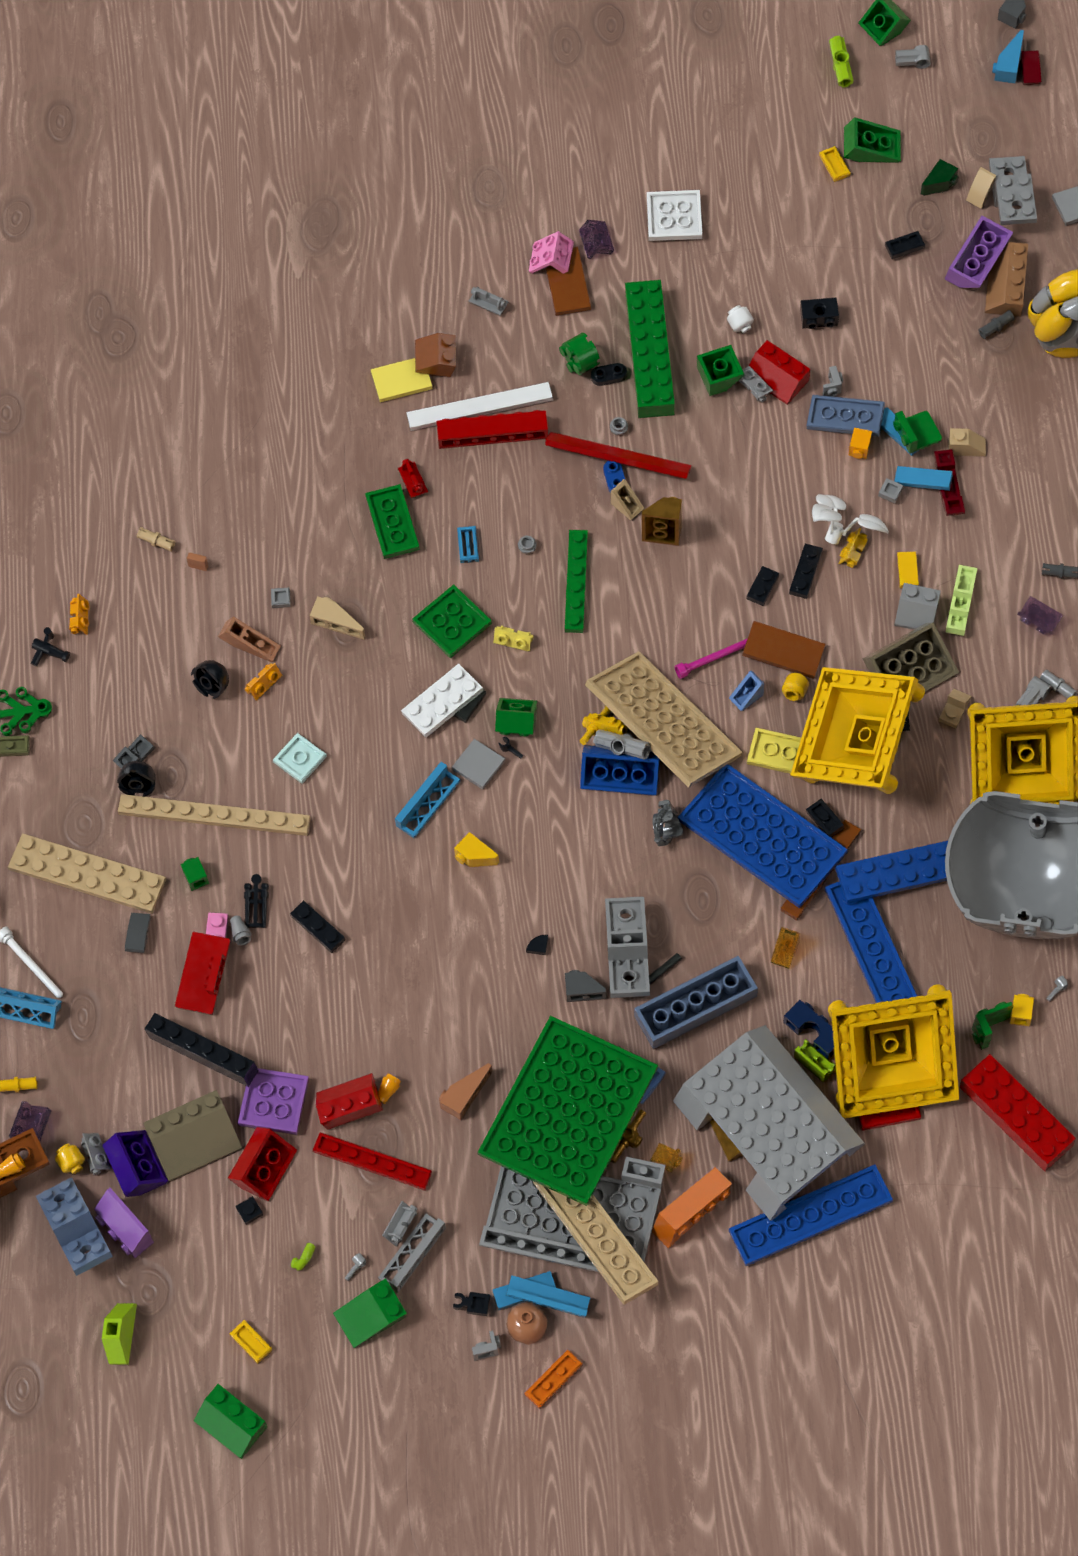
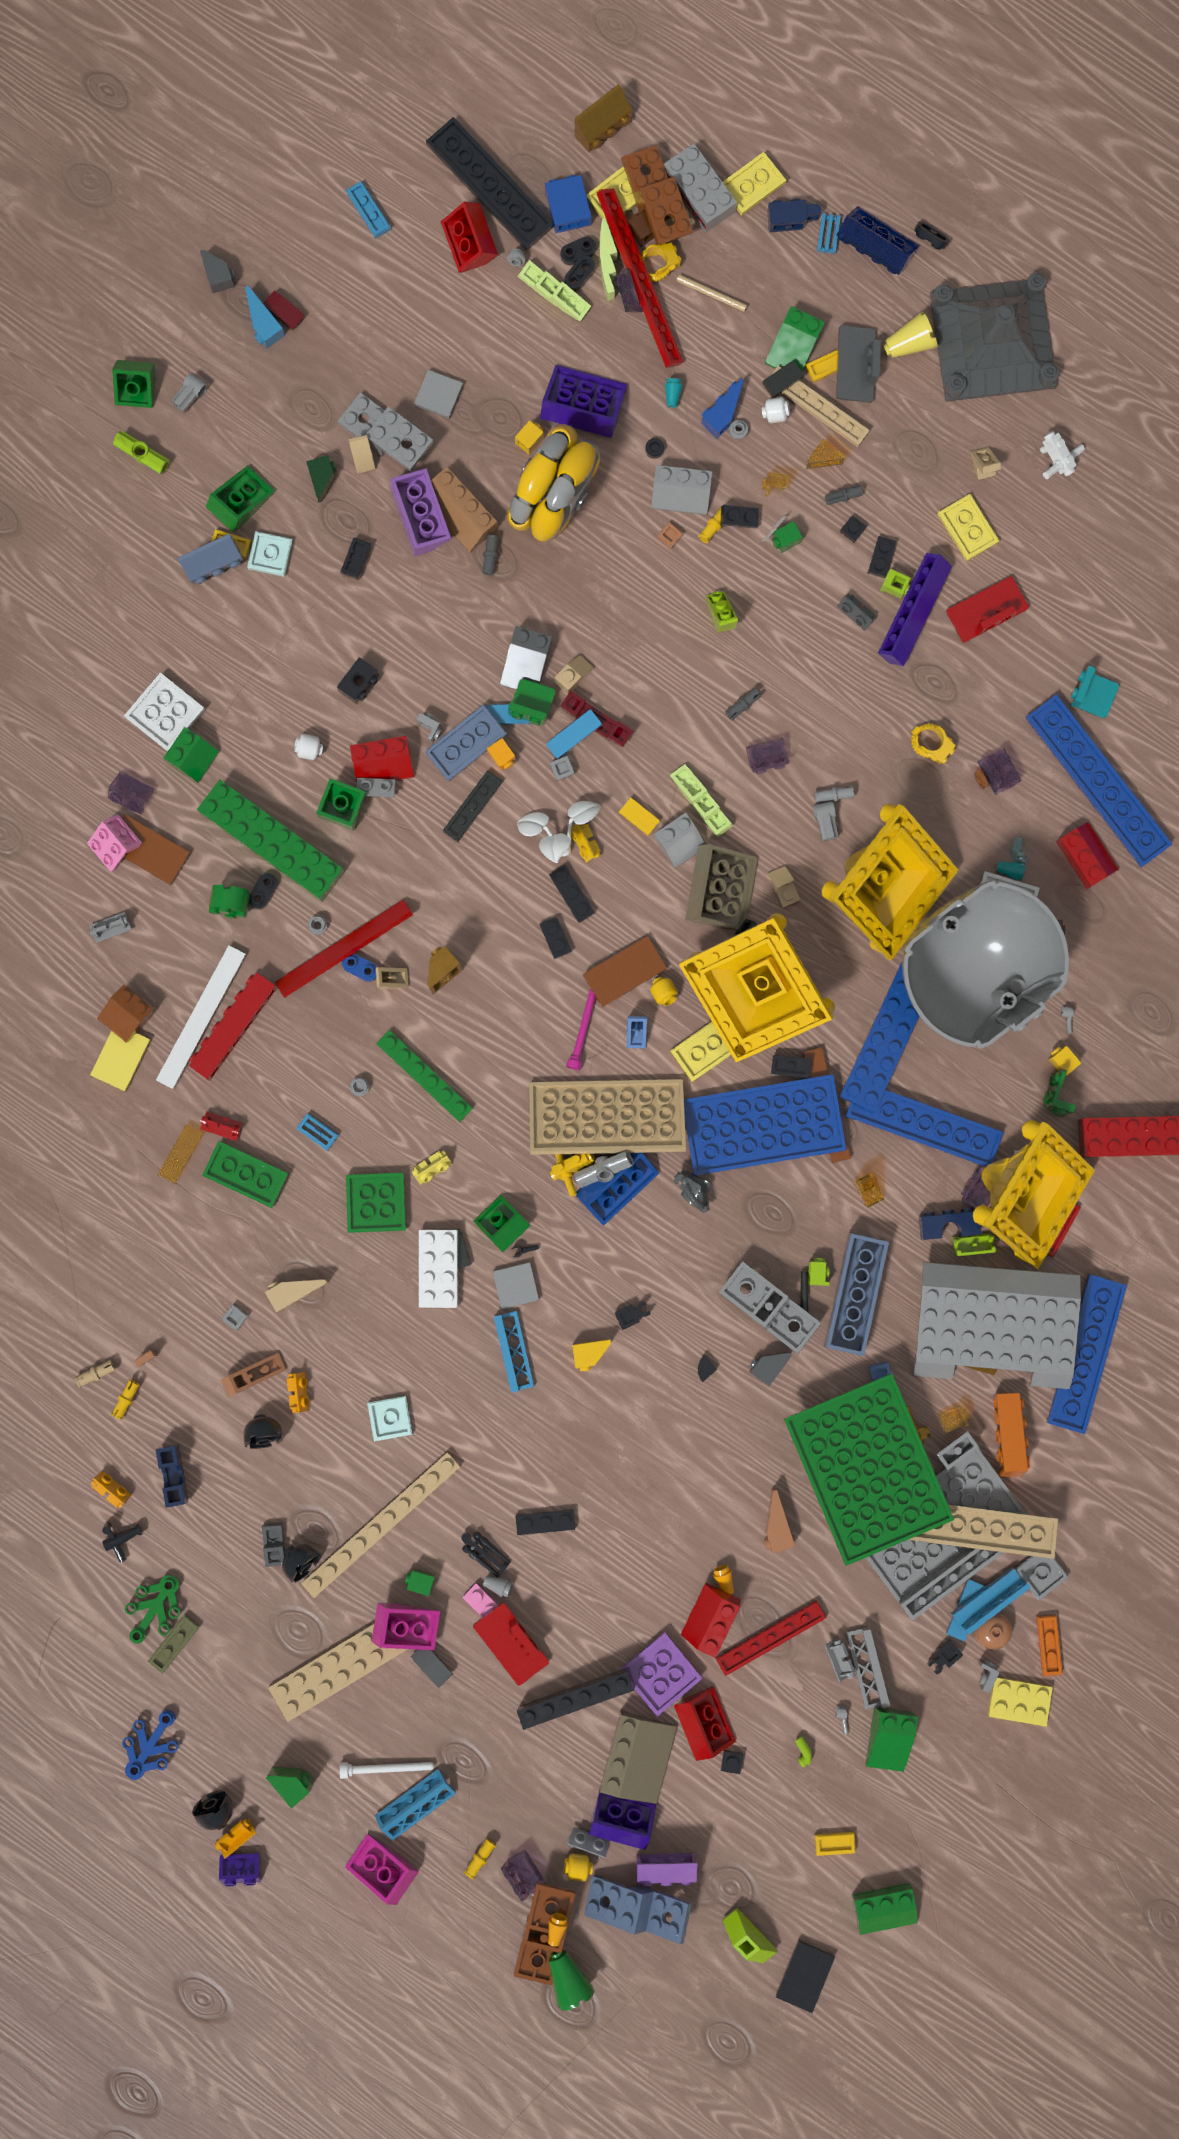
camera: 60 degrees left, 20 degrees up
(124, 1404) = (805, 1976): none -> black tile
(136, 634) = (174, 1481): none -> dark blue arch
(152, 886) = (405, 1627): none -> dark pink slope
(154, 573) = (125, 1399): none -> yellow pin
(367, 470) = (180, 1154): none -> clear yellow tile
(488, 1392) = (1020, 1701): none -> light yellow plate
(528, 857) = (629, 1316): none -> black plate
(605, 1325) = (1041, 1575): none -> light grey tile
(660, 253) = (191, 755): none -> green slope
(686, 964) = (818, 1272): none -> lime brick
(804, 457) = (472, 806): none -> pearl dark grey tile
(810, 155) = (211, 559): none -> sand blue slope
(852, 192) = (270, 554): none -> light aqua tile
(948, 403) = (526, 657): none -> slope

